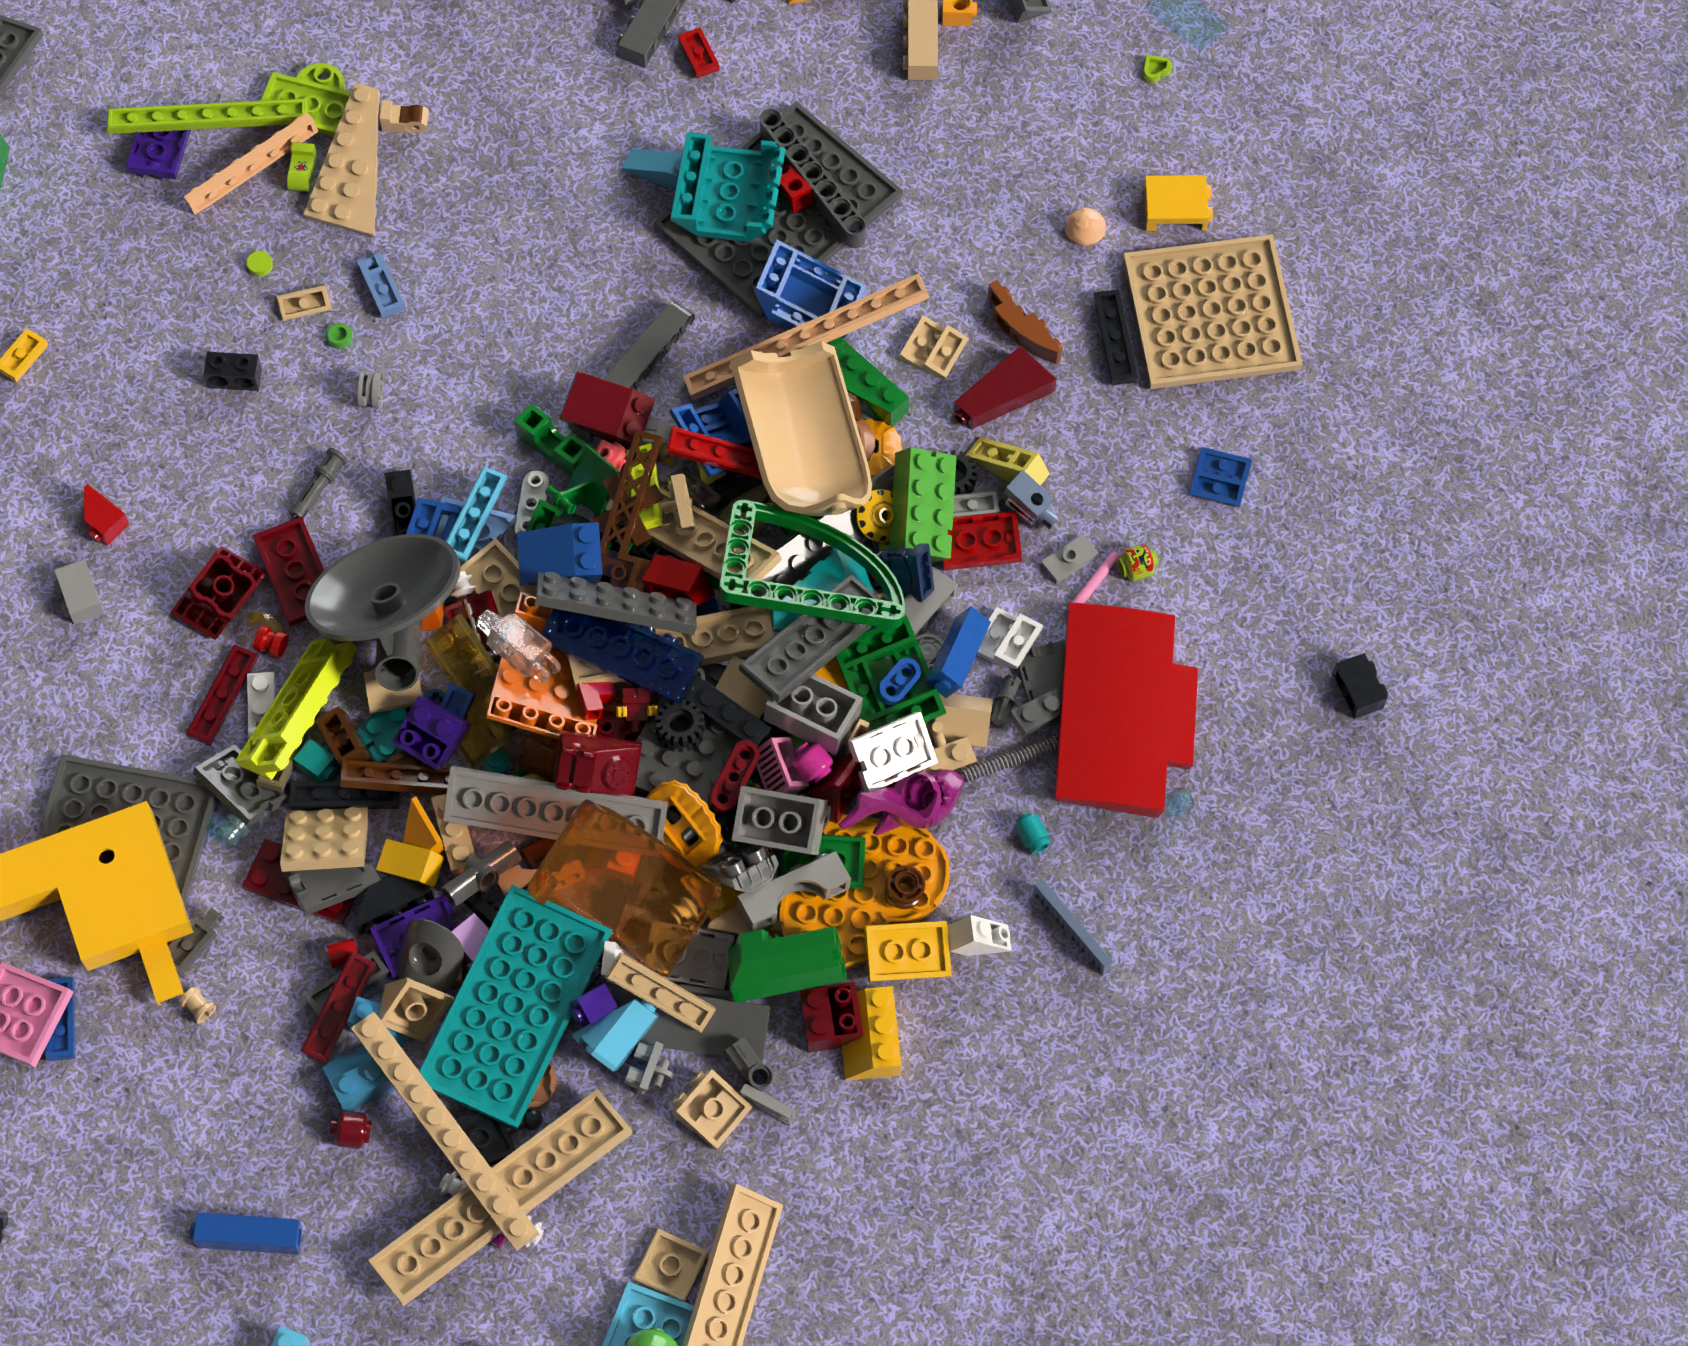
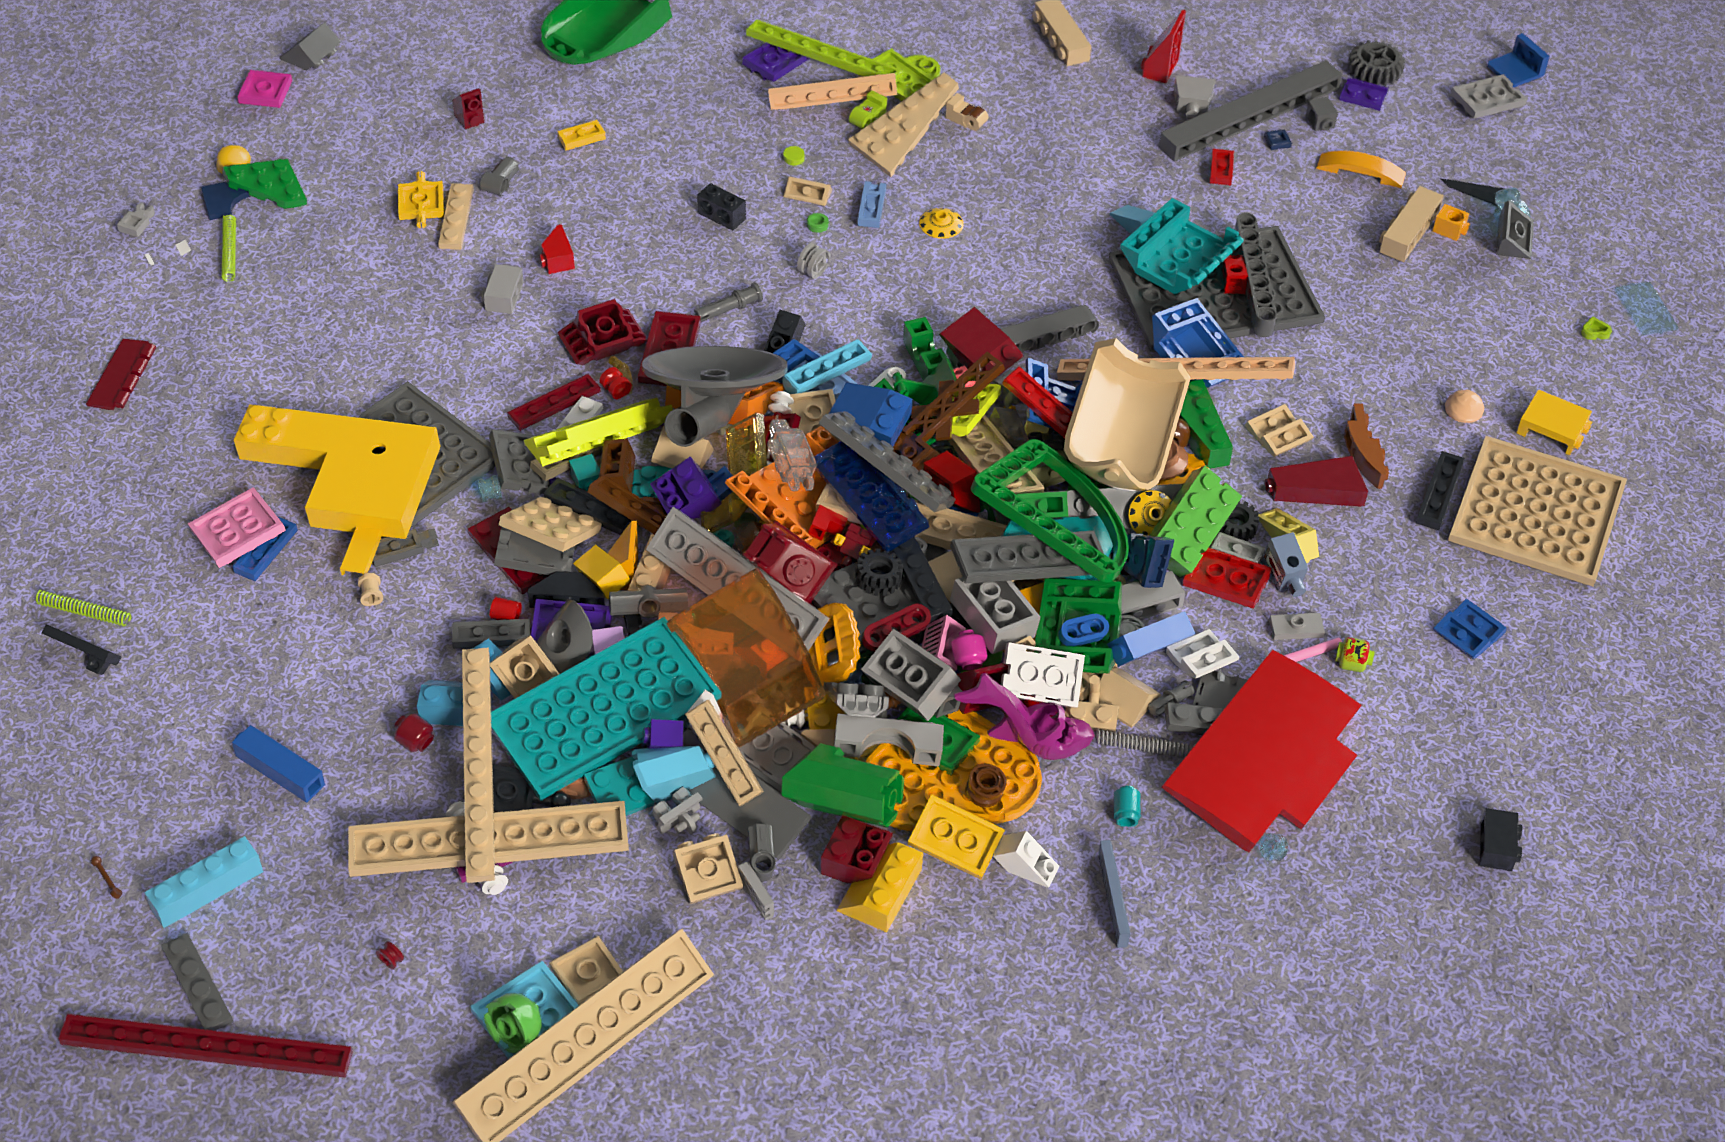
camera: 30 degrees right, 15 degrees down
(337, 1007) = (449, 654): dark red tile -> none
(464, 277) = (941, 223): none -> yellow dish
(576, 1074) = (618, 783): none -> teal plate
(681, 504) = (991, 422): tan plate -> none
(791, 569) = (1050, 503): none -> green slope

